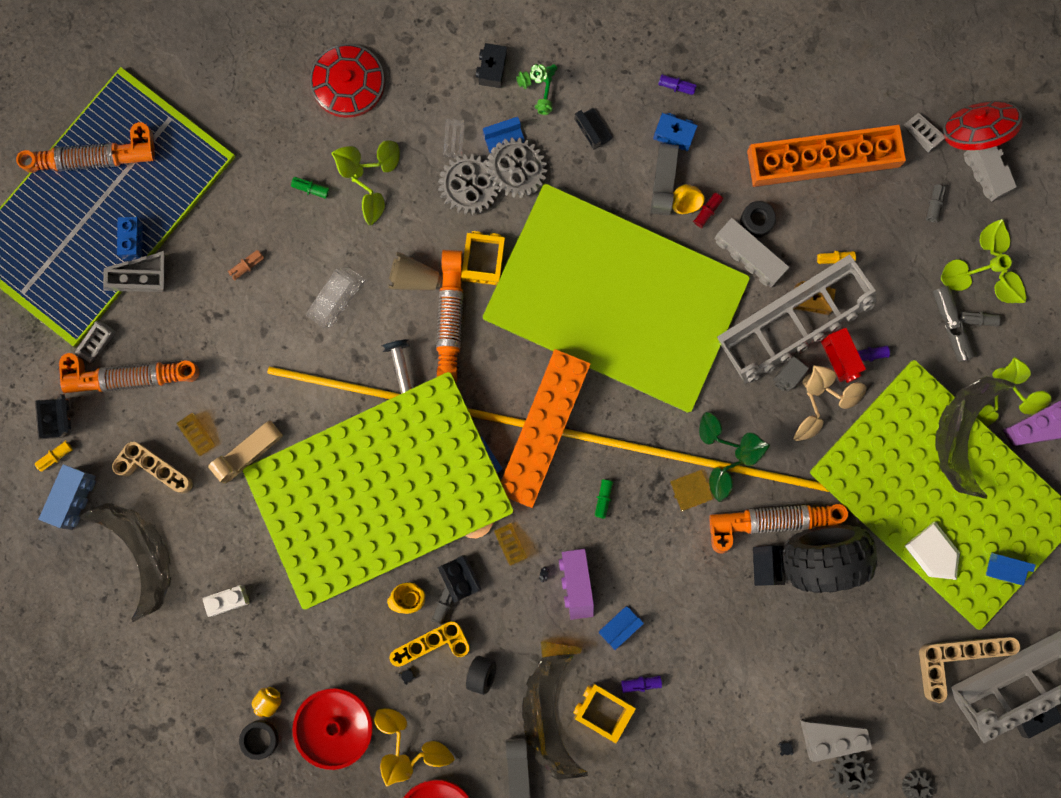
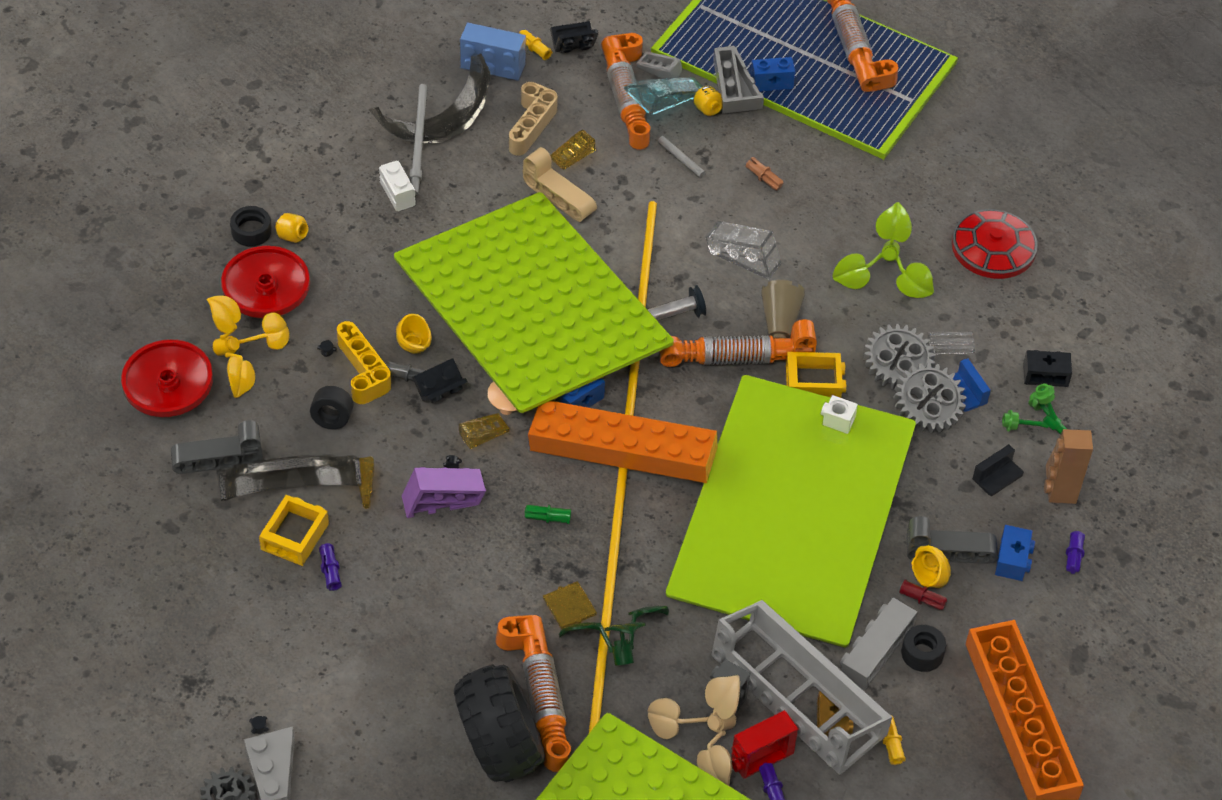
camera: 85 degrees right, 30 degrees down
(140, 344) = (662, 94): none -> clear light blue wedge
(150, 302) = (708, 100): none -> yellow head
(210, 582) = (415, 173): none -> light grey bar
(213, 336) = (681, 156): none -> light grey bar
(310, 187) = (863, 220): green axle -> none
(538, 236) = (845, 417): none -> white brick
(609, 71) = (1068, 466): none -> medium nougat wedge
(620, 627) = (394, 543): blue panel -> none

